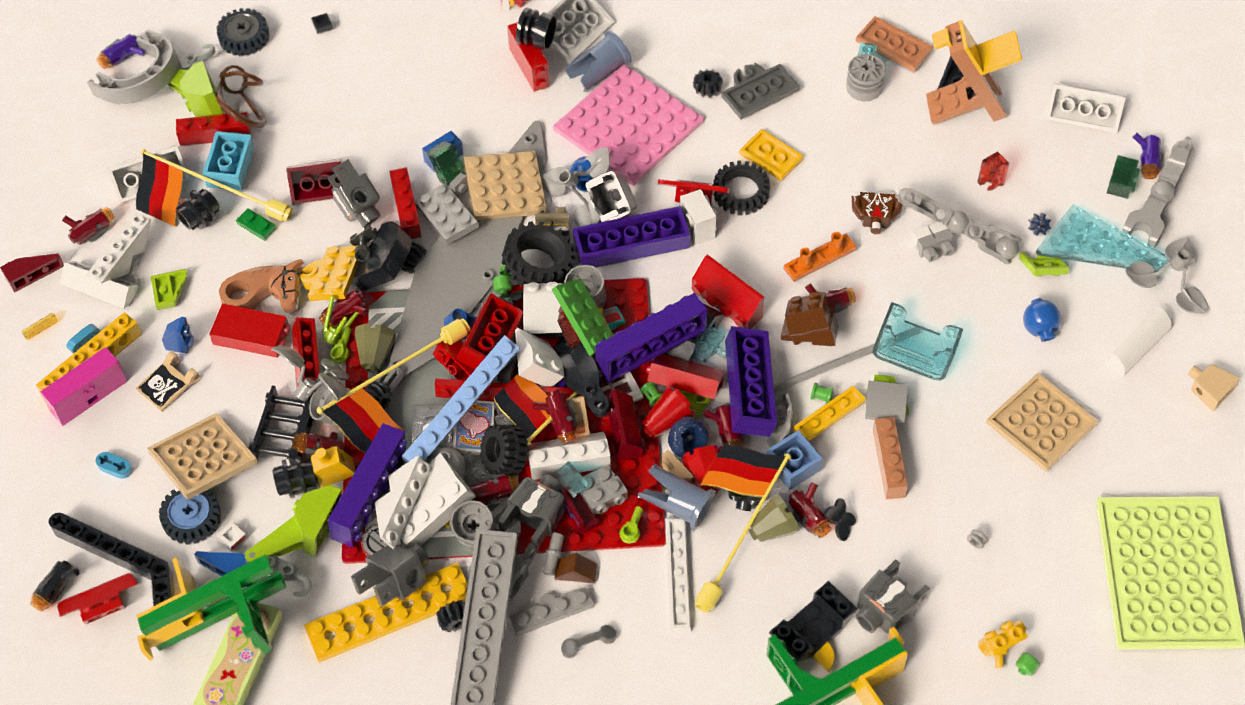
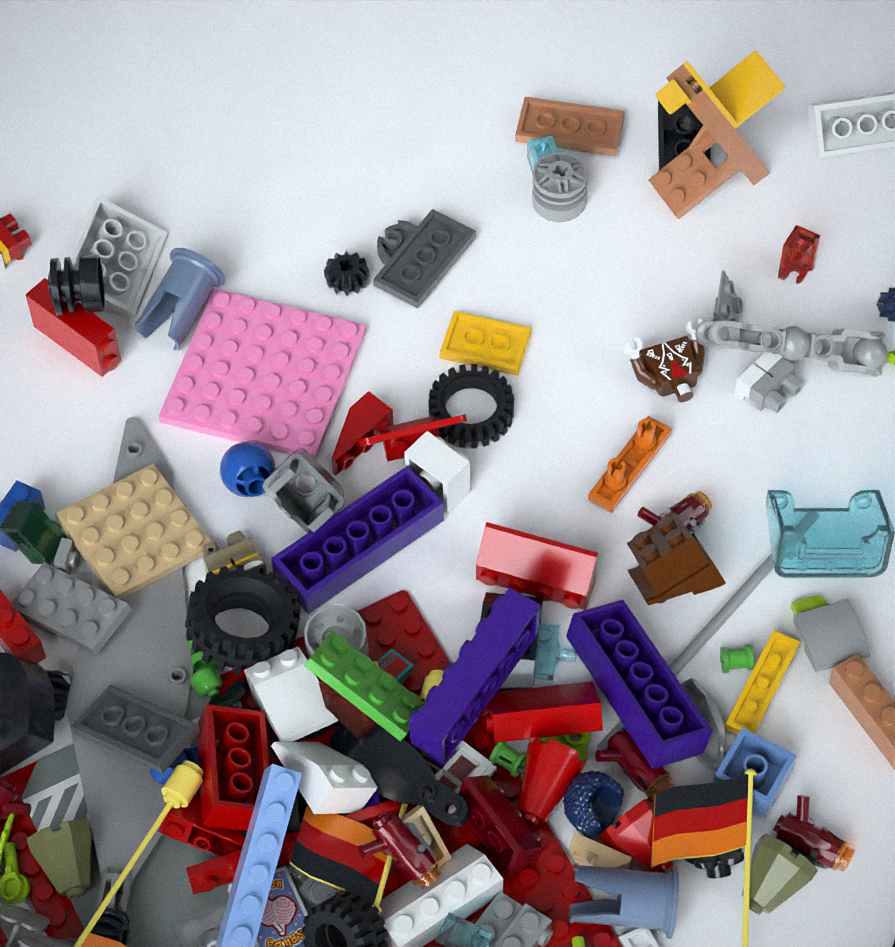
camera: 25 degrees left, 0 degrees up
(446, 292) = (136, 728): none -> dark grey tile
(558, 178) = (208, 492): light grey plant -> none
(669, 170) = (361, 422): none -> red slope
(840, 518) = (860, 831): black animal -> none
(931, 183) = (727, 304): none -> light grey hinge

